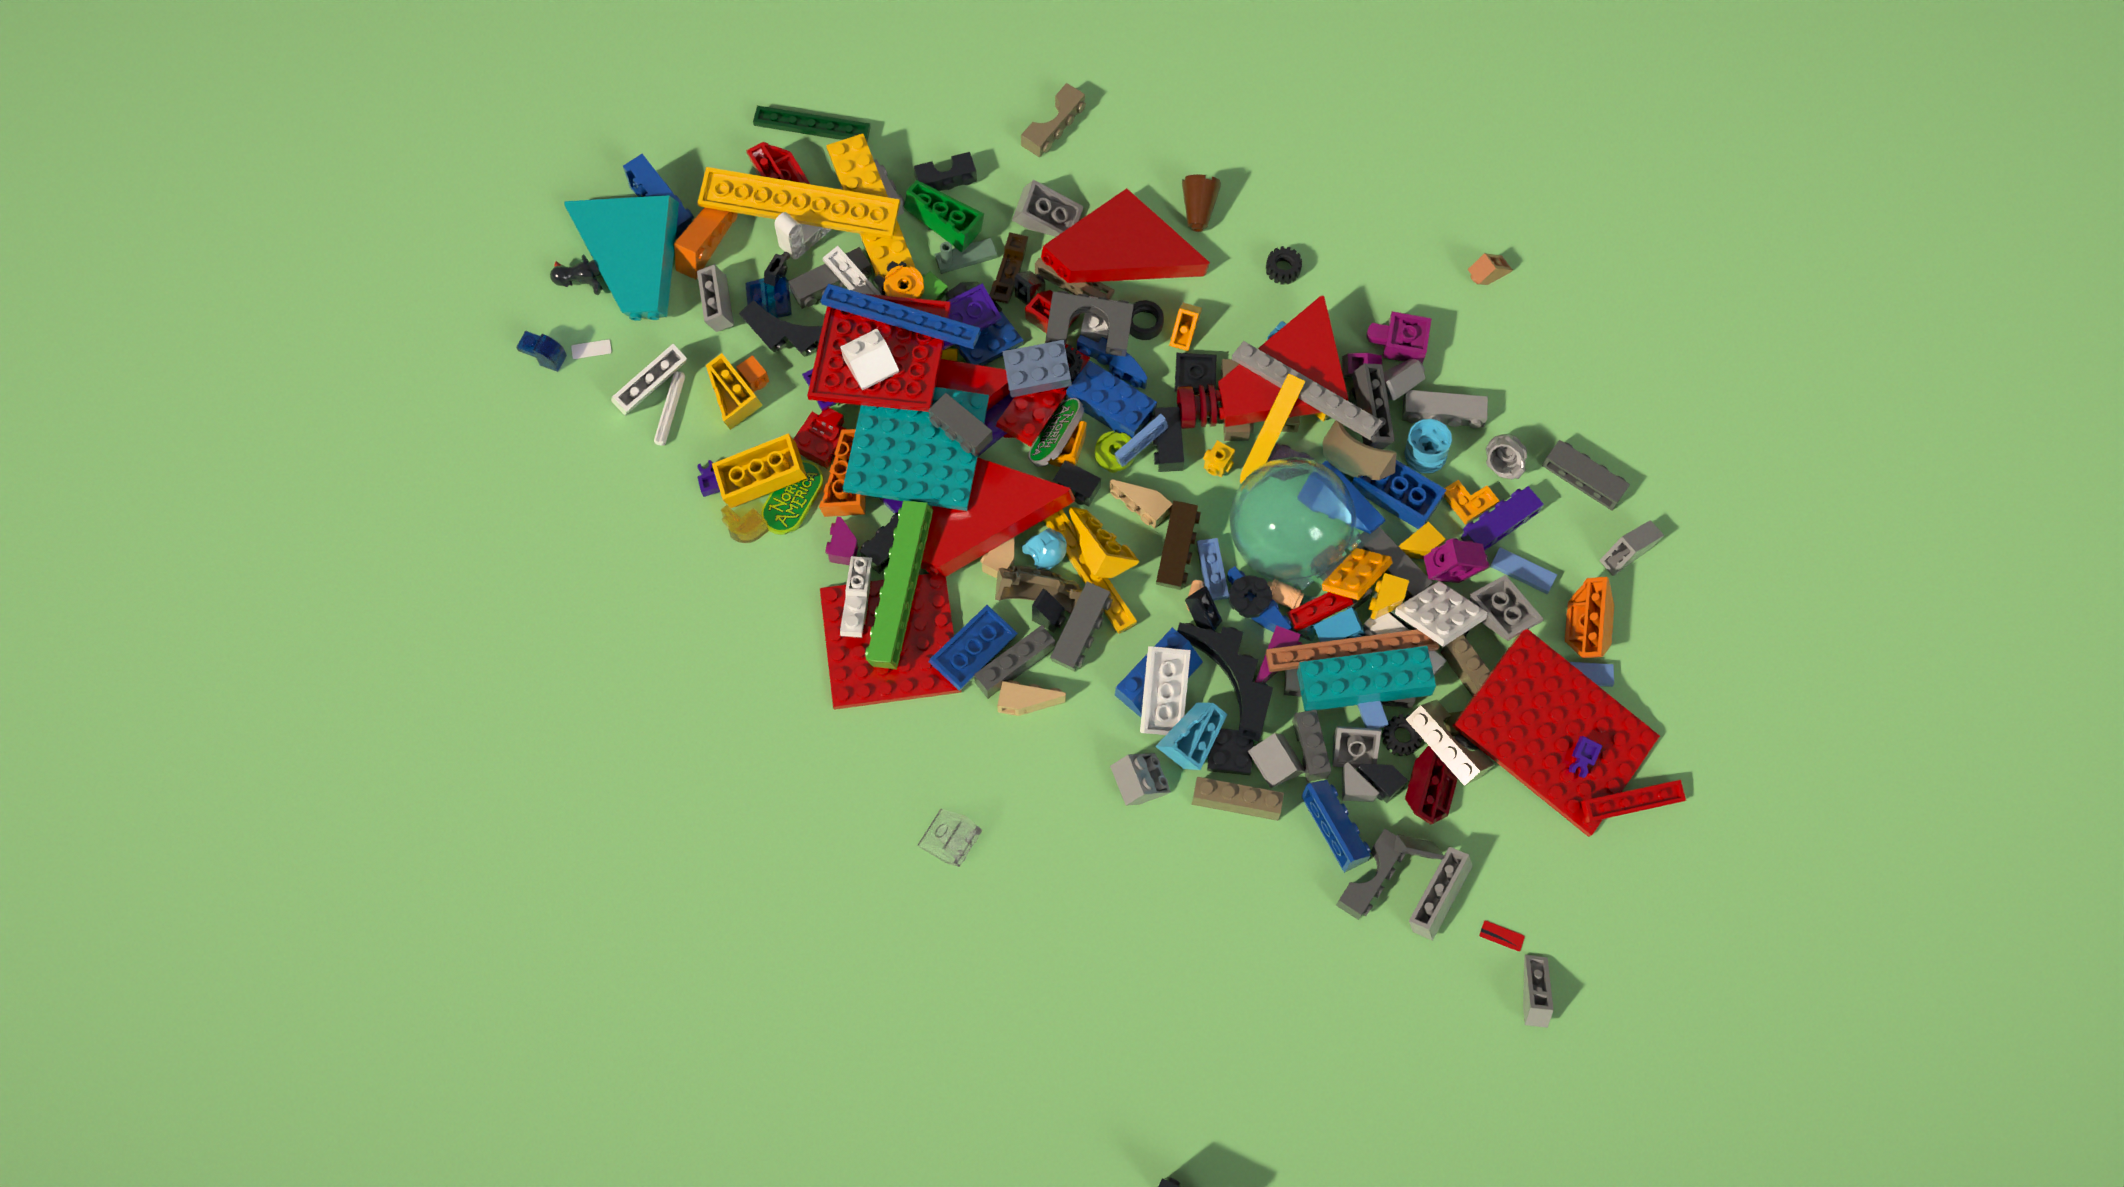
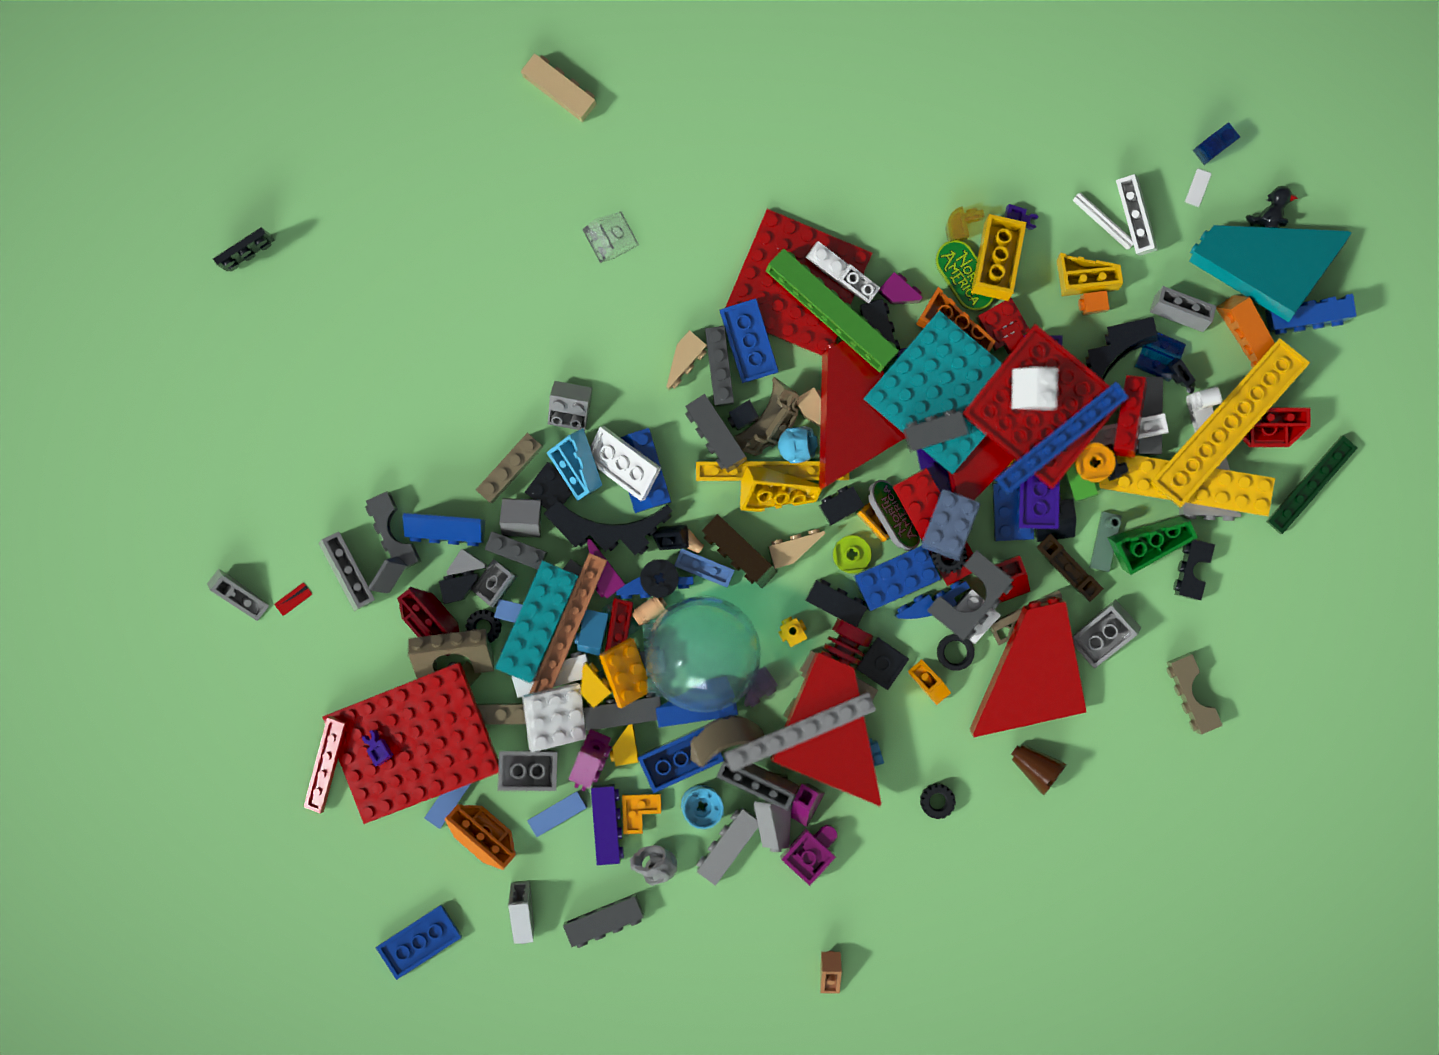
camera: 120 degrees right, 20 degrees up
(826, 978) = (558, 87): none -> tan brick
(849, 277) = (1130, 416): none -> red brick
(1028, 286) = (1041, 575): black slope -> none
(1141, 440) = (842, 575): medium blue tile -> none
(1273, 425) = (787, 685): yellow piece -> none
(1725, 622) = (418, 942): none -> blue plate

